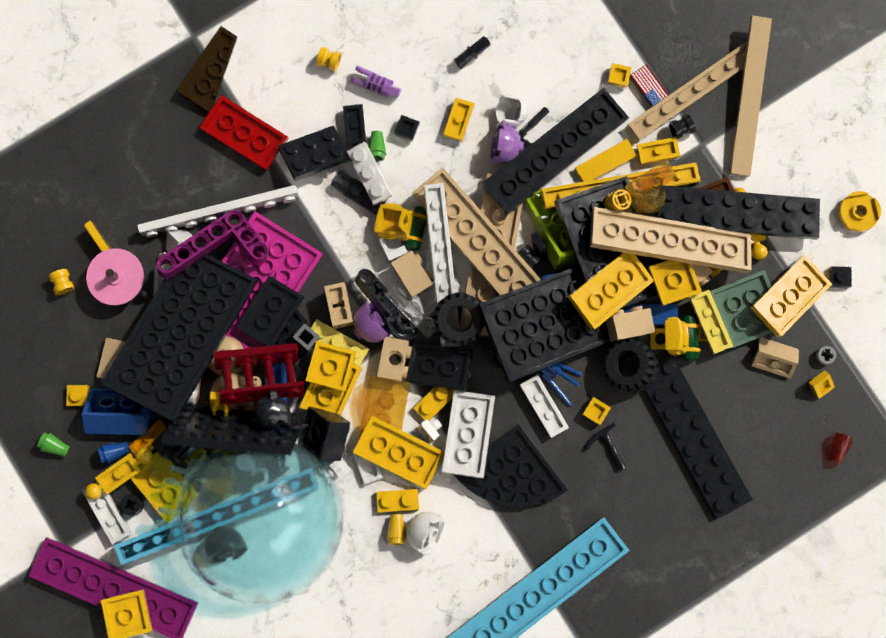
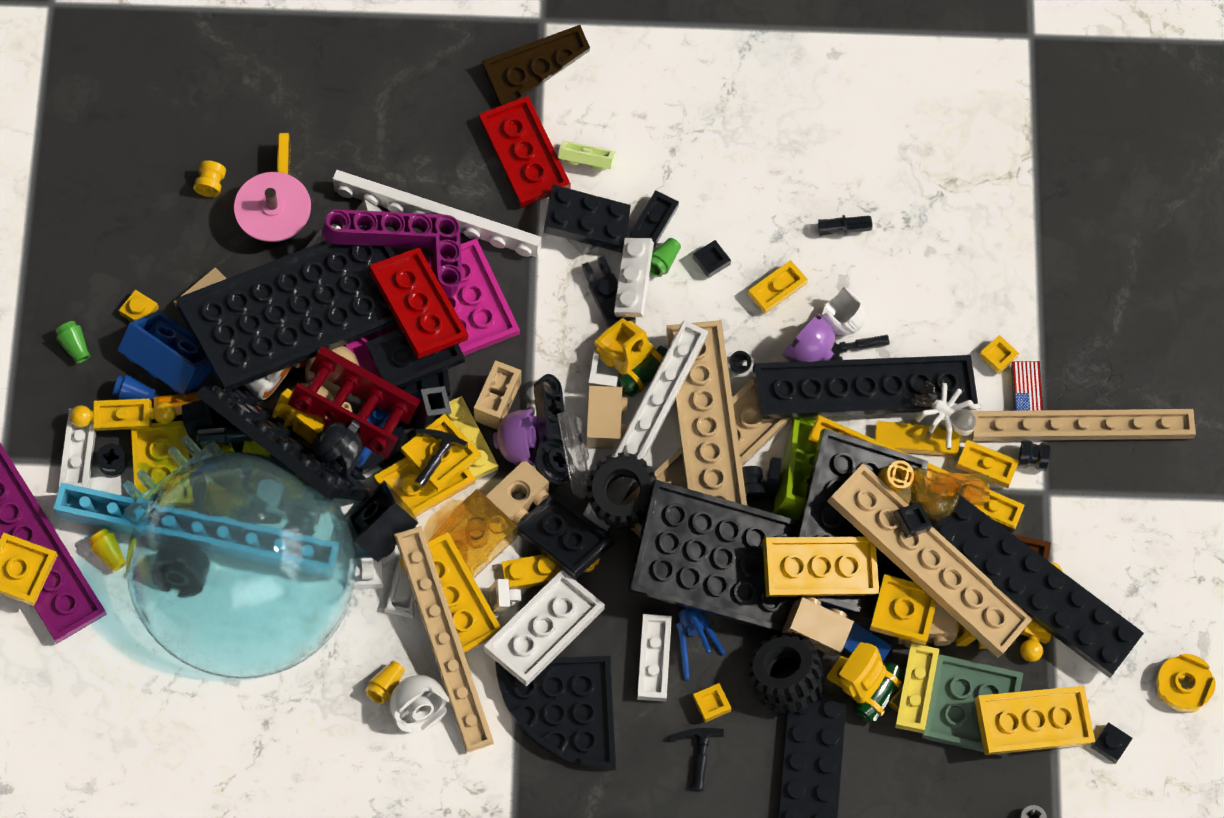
camera: 30 degrees right, 15 degrees down
(169, 562) = (107, 549): none -> yellow cone
(241, 409) = (306, 426): none -> yellow plate
(252, 281) = (418, 303): none -> red plate
(283, 110) = (577, 153): none -> yellowish green plate
(328, 59) = (675, 132): yellow wheel -> none
(332, 375) = (435, 460): none -> black piece
(376, 83) = (711, 191): medium lavender hinge -> none
(397, 500) = (409, 652): yellow plate -> none
(413, 481) = (444, 639): none -> tan tile
(471, 188) = (740, 356): none -> black hinge
(617, 137) = (950, 414): none -> animal
(647, 223) = (912, 520): none -> black tile
(750, 96) = (1138, 471): tan tile -> none
(776, 358) = (968, 782): tan panel -> none

